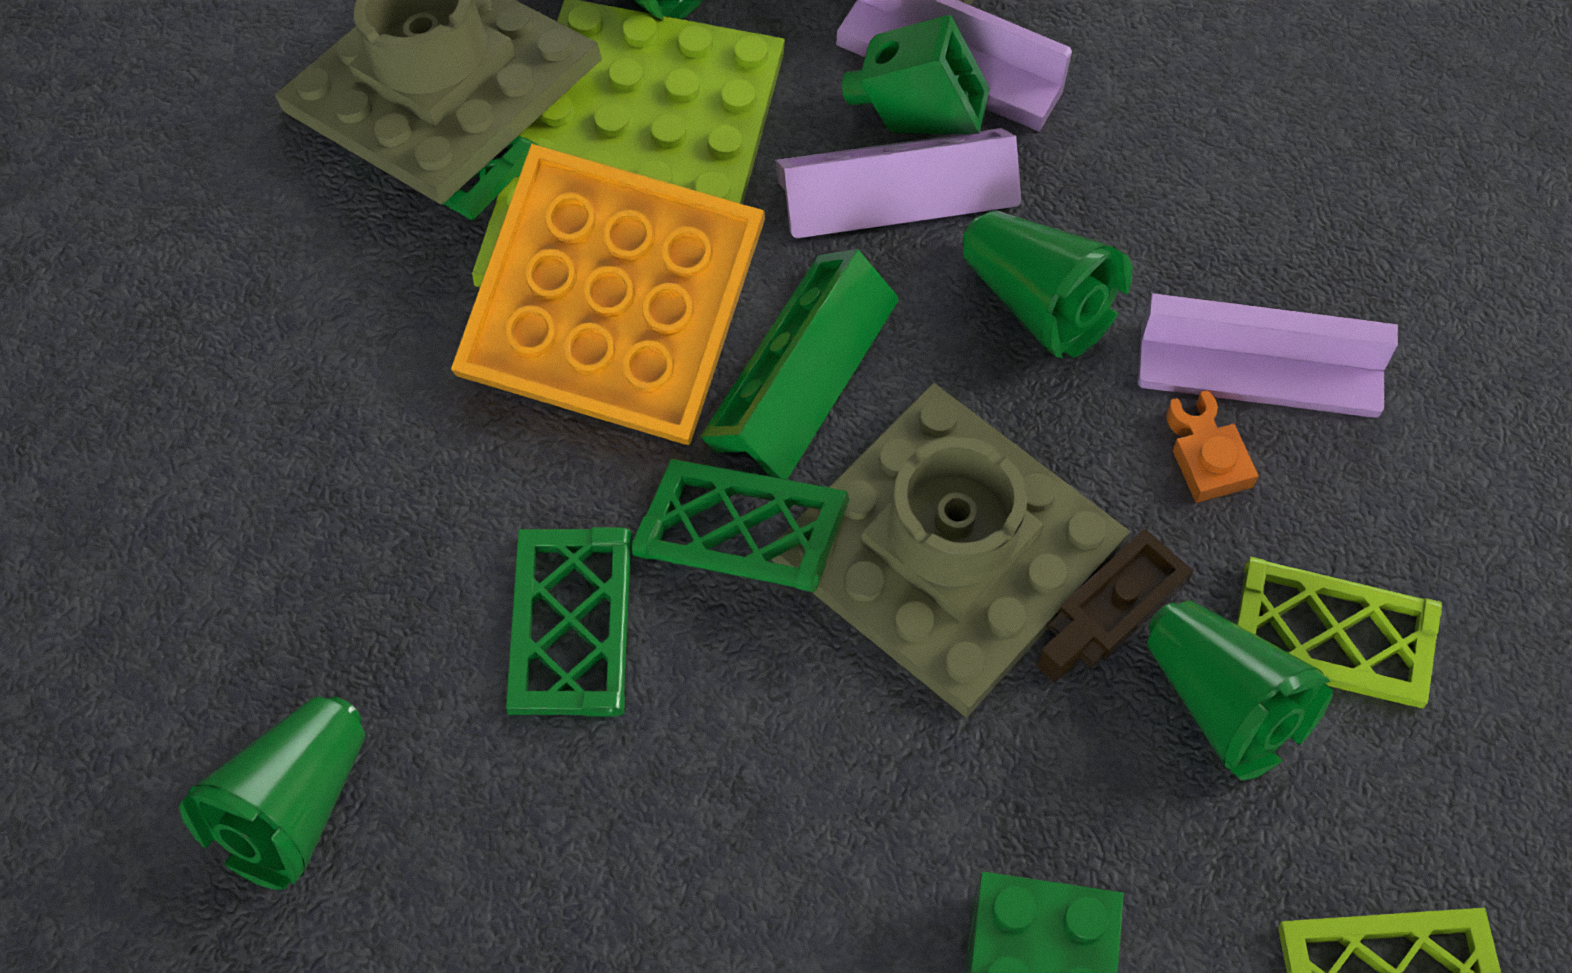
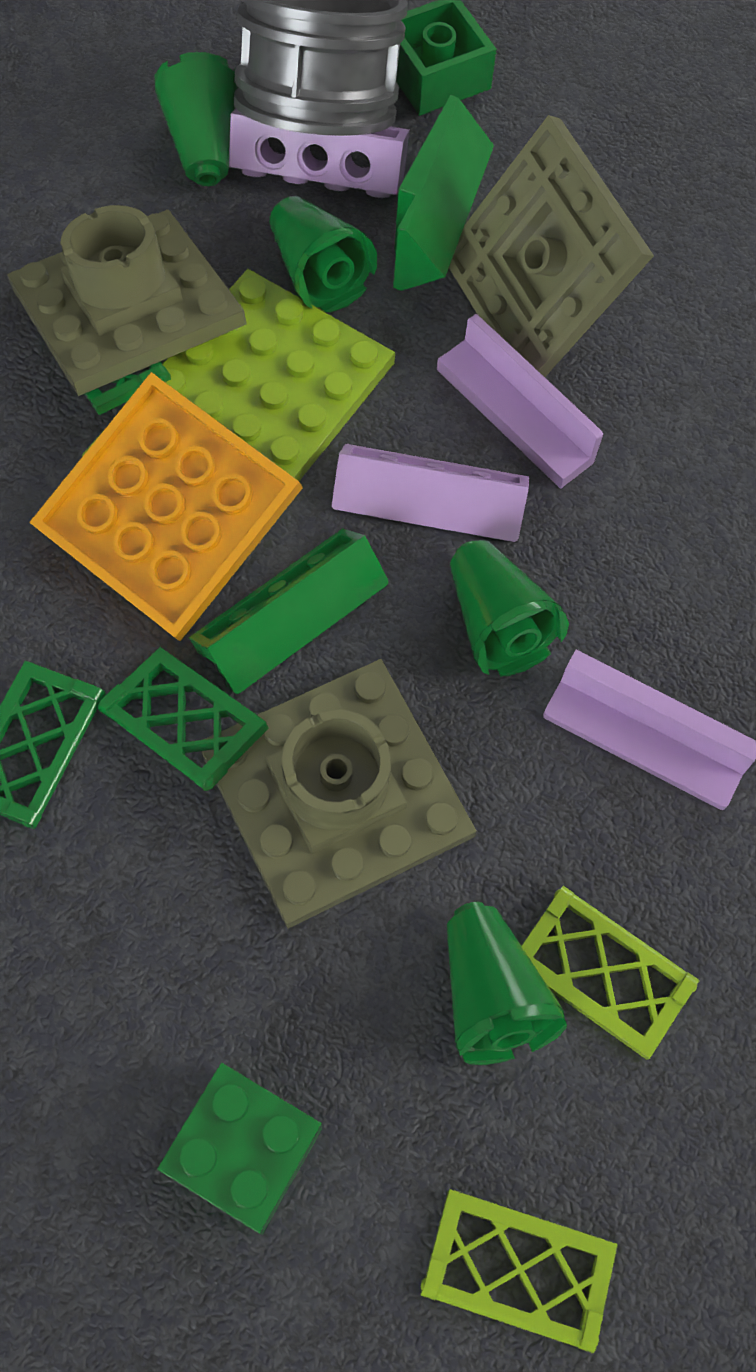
camera: 20 degrees right, 5 degrees up
(921, 80) = (478, 419): green torso -> none
(1113, 605) = (436, 884): dark brown hinge -> none
(1209, 456) = (571, 793): orange plate -> none

